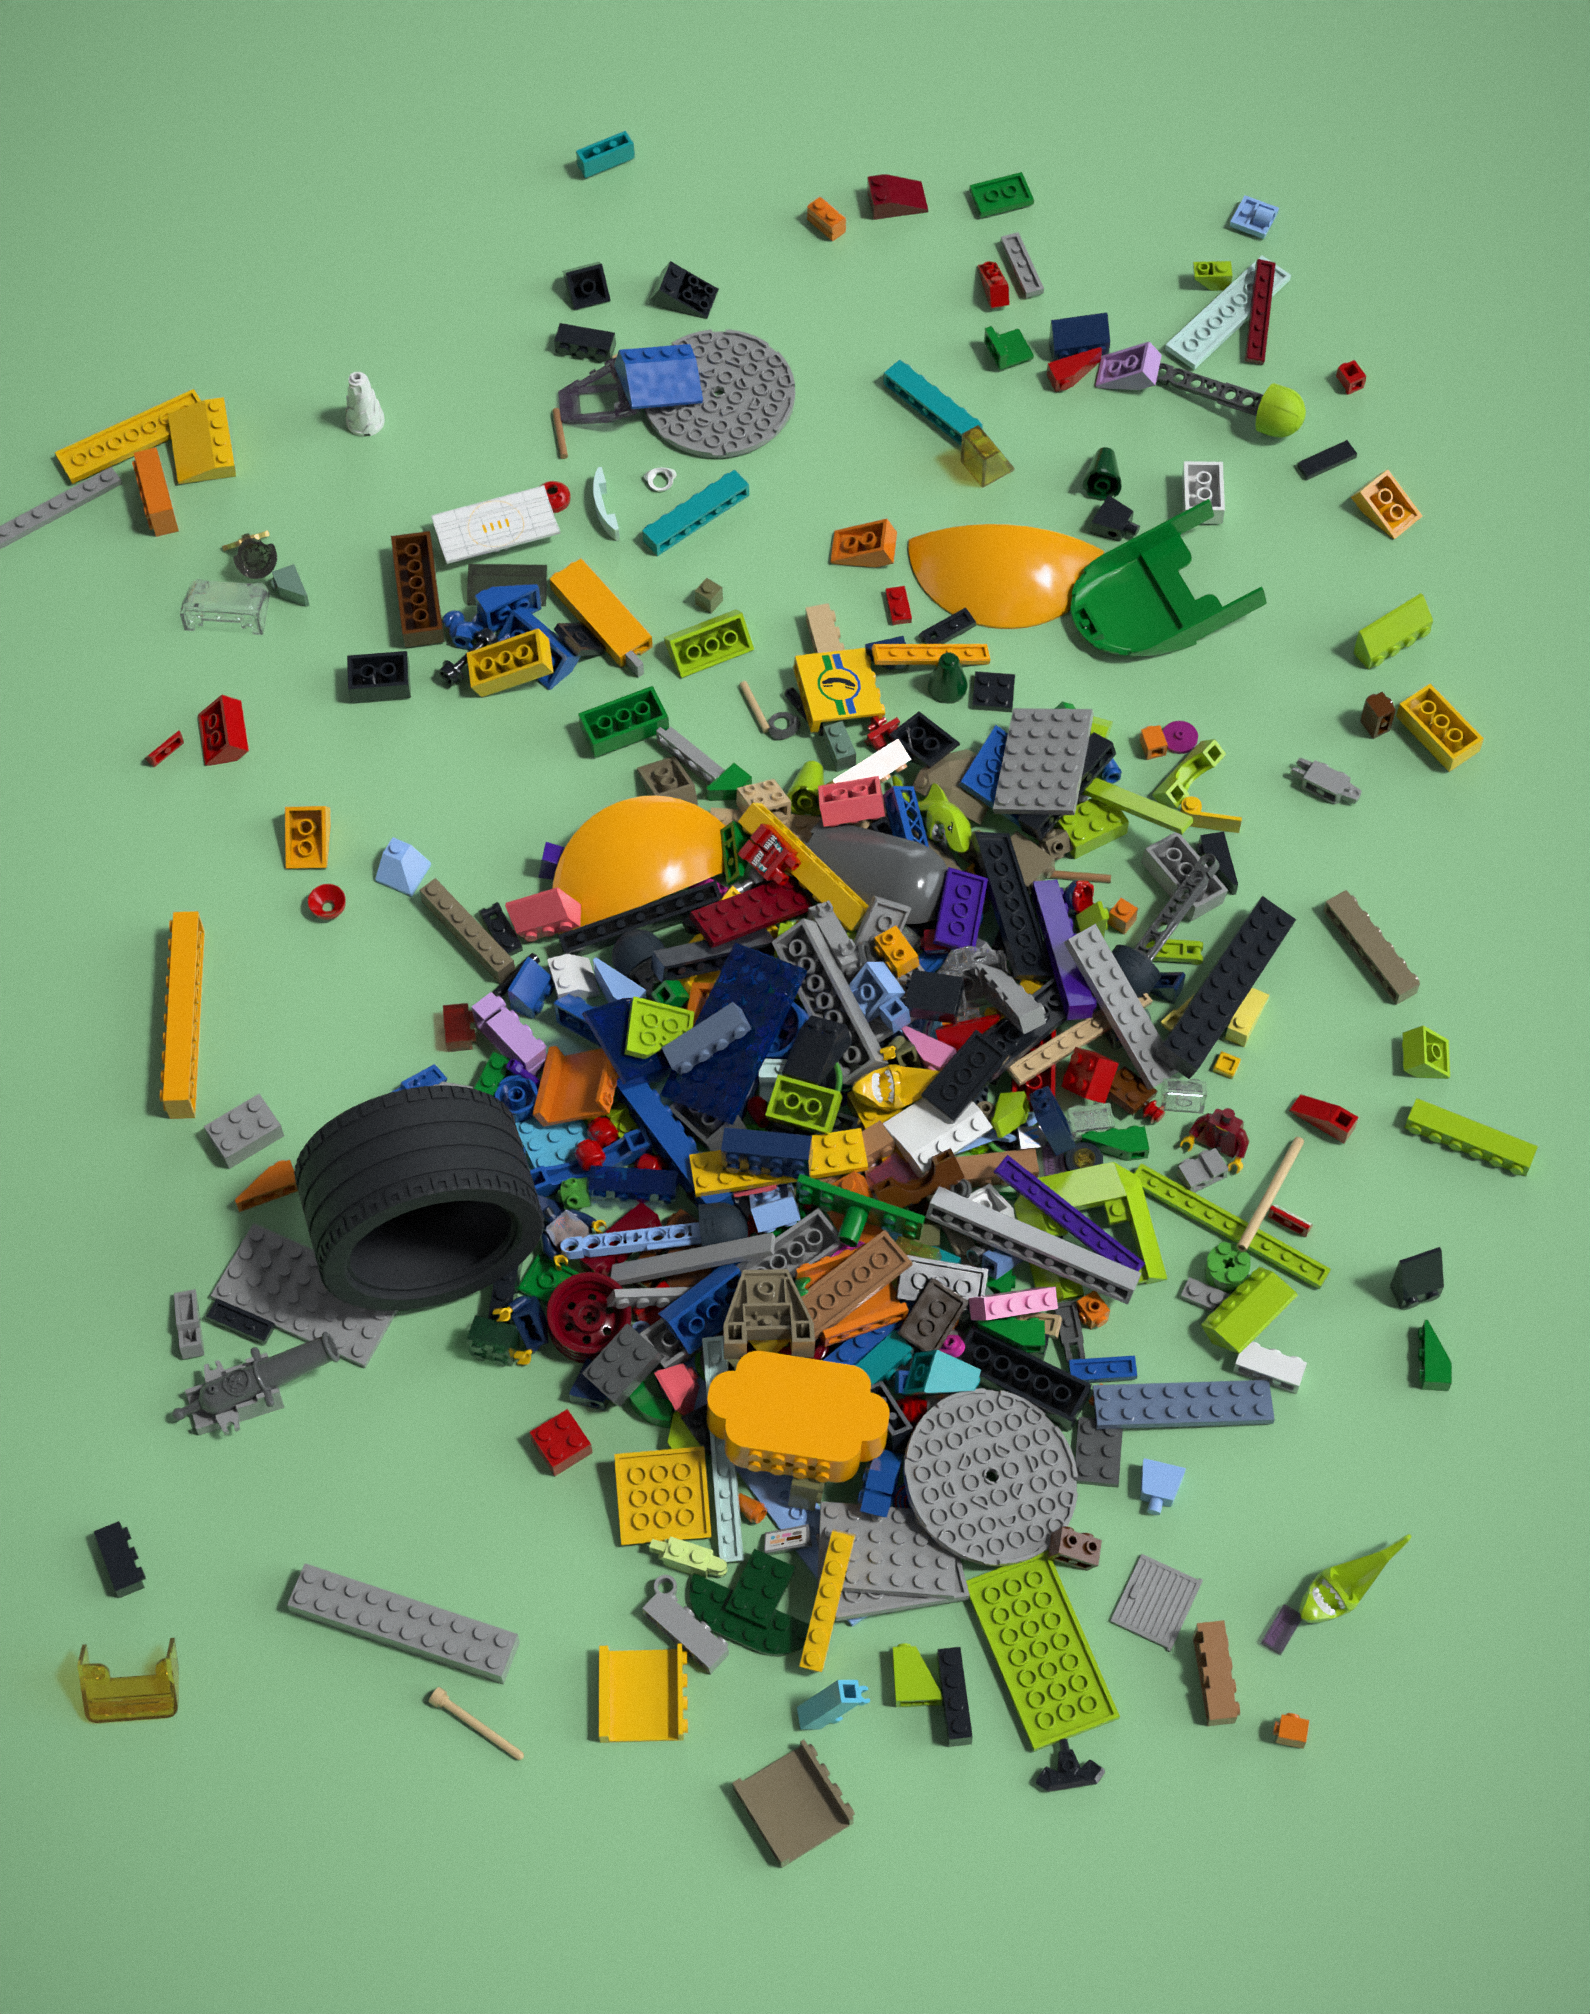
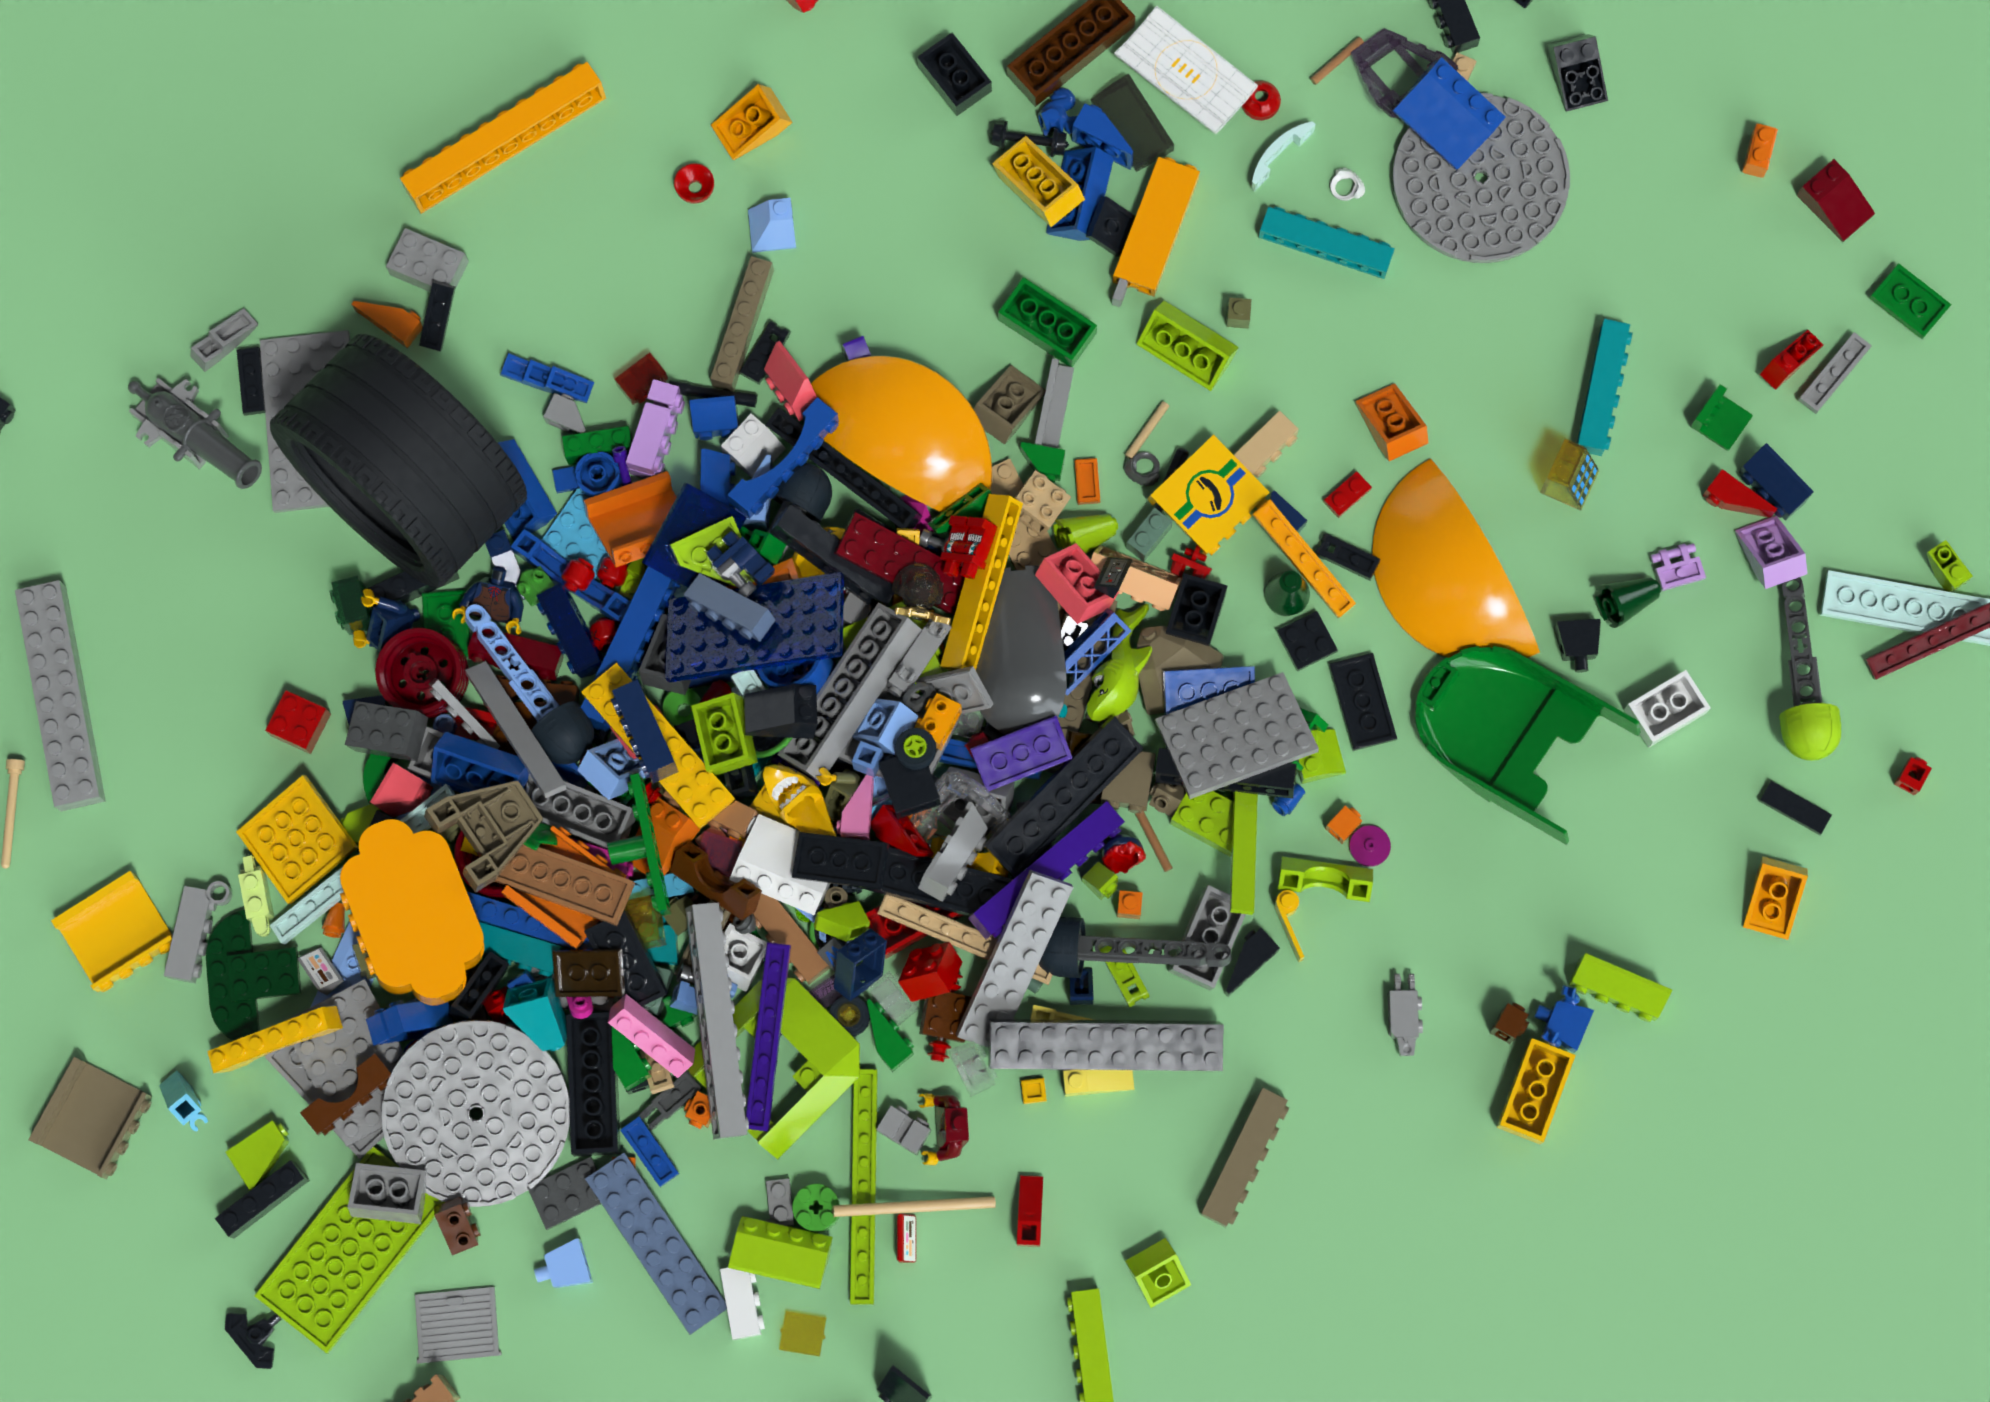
camera: 60 degrees right, 15 degrees up
(288, 1135) = (437, 316): none -> black plate
(593, 908) = (752, 494): none -> blue arch
(673, 1007) = (737, 558): none -> dark blue hips
(766, 767) = (1087, 481): none -> orange tile
(784, 905) = (920, 590): none -> clear smoke helmet
(864, 770) = (1112, 575): none -> slope
(906, 965) = (913, 740): none -> black wheel
(910, 1537) = (323, 1114): none -> reddish brown arch
(1016, 1583) = (387, 1193): none -> light grey slope
(1065, 681) = (1363, 702): none -> black tile
(1105, 432) = (1678, 573): none -> lavender plate
(1322, 1338) = (802, 1333): none -> clear yellow piece
(1397, 680) = (1565, 1021): none -> blue torso

